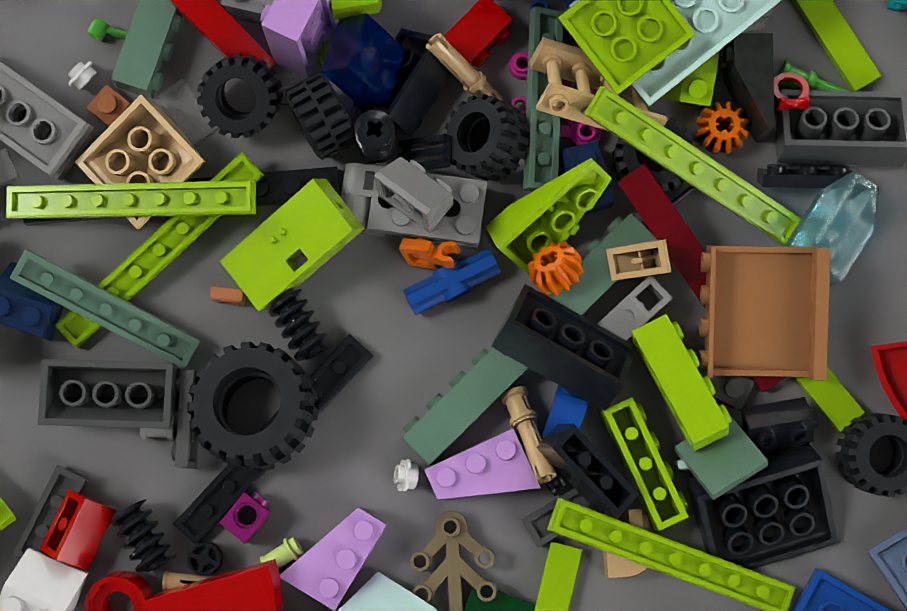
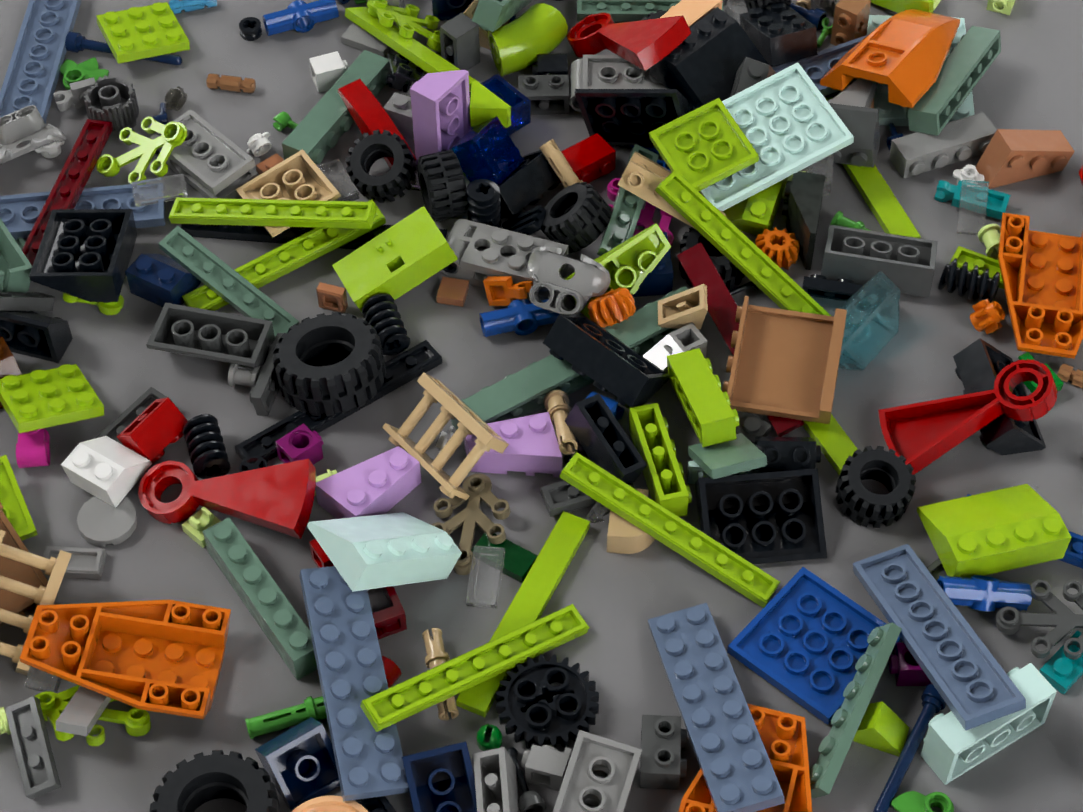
camera: 15 degrees right, 30 degrees down
(363, 255) = (452, 291): none -> nougat tile
(414, 193) = (502, 232): light grey slope -> none
(421, 463) = (468, 423): none -> tan fence
(477, 250) = (544, 267): none -> light grey piece
(783, 103) = (828, 227): red piece -> none

